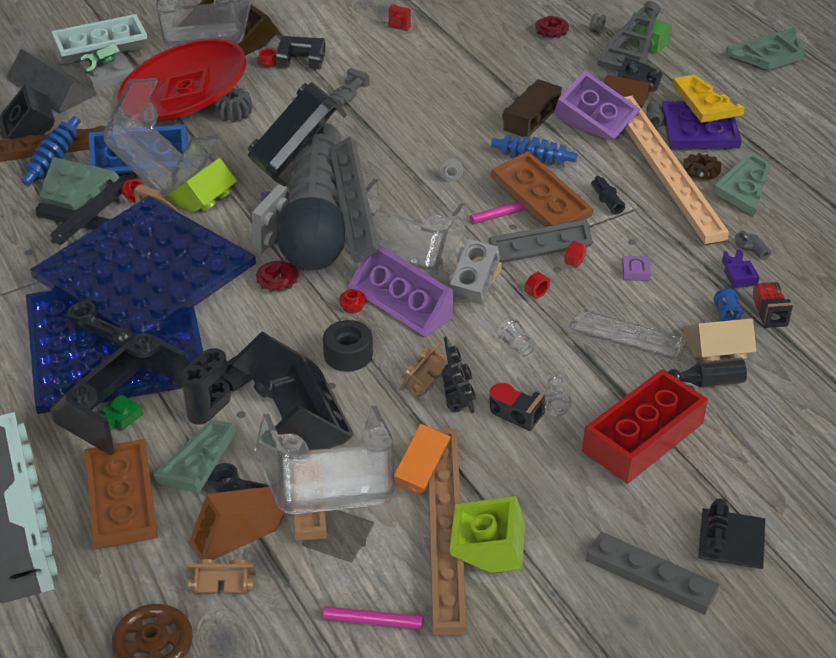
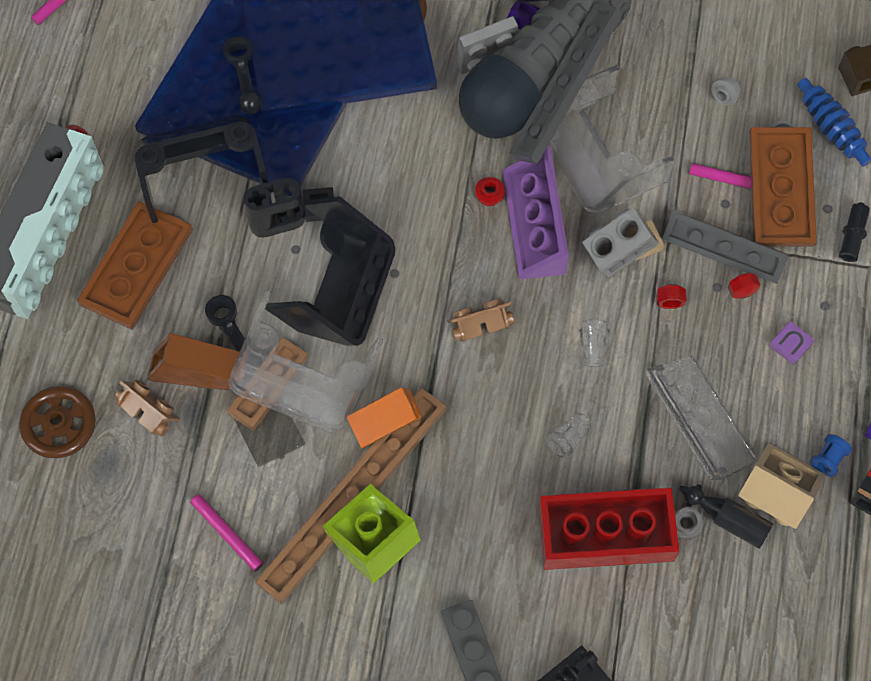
camera: 40 degrees right, 25 degrees up
(121, 412) = (198, 179): green plate -> none
(197, 458) = (215, 275): sand green wing -> none
(267, 275) = (434, 114): dark red gear -> none
(347, 345) = (437, 226): black tyre -> none
(456, 379) = (493, 353): black hinge -> none
(516, 406) = (521, 420): black leg -> none

